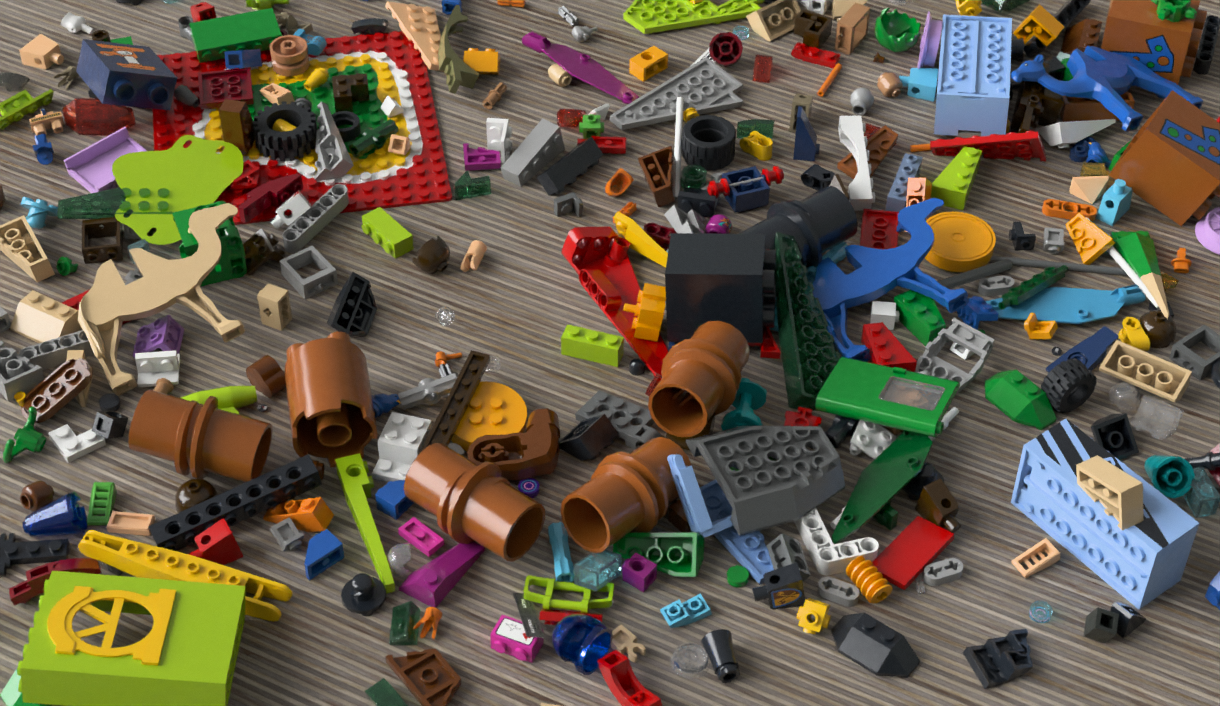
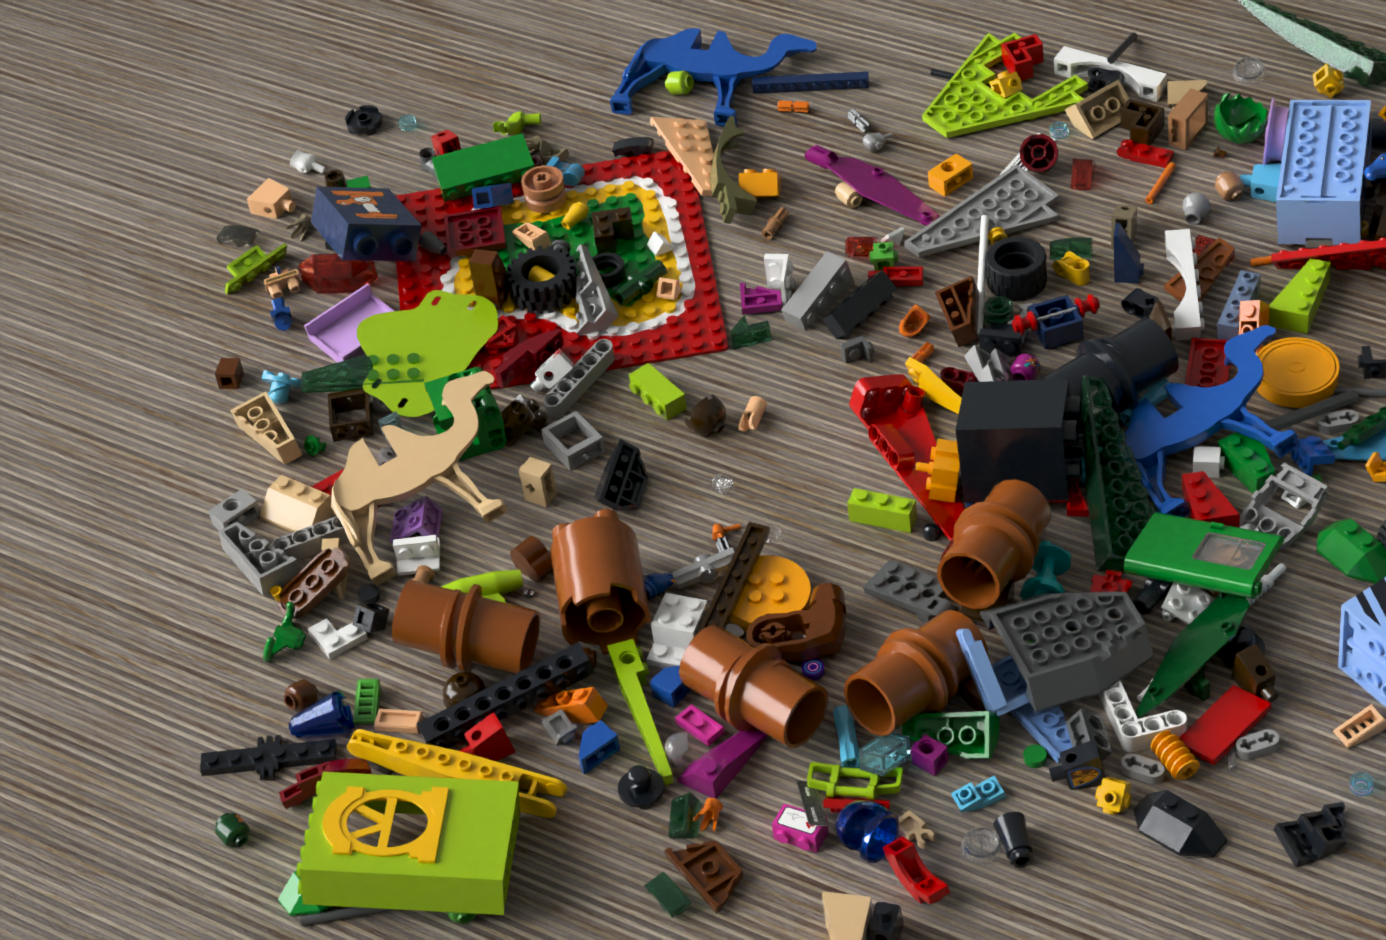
camera: 10 degrees right, 0 degrees up
(589, 438) = (877, 613): black slope -> none

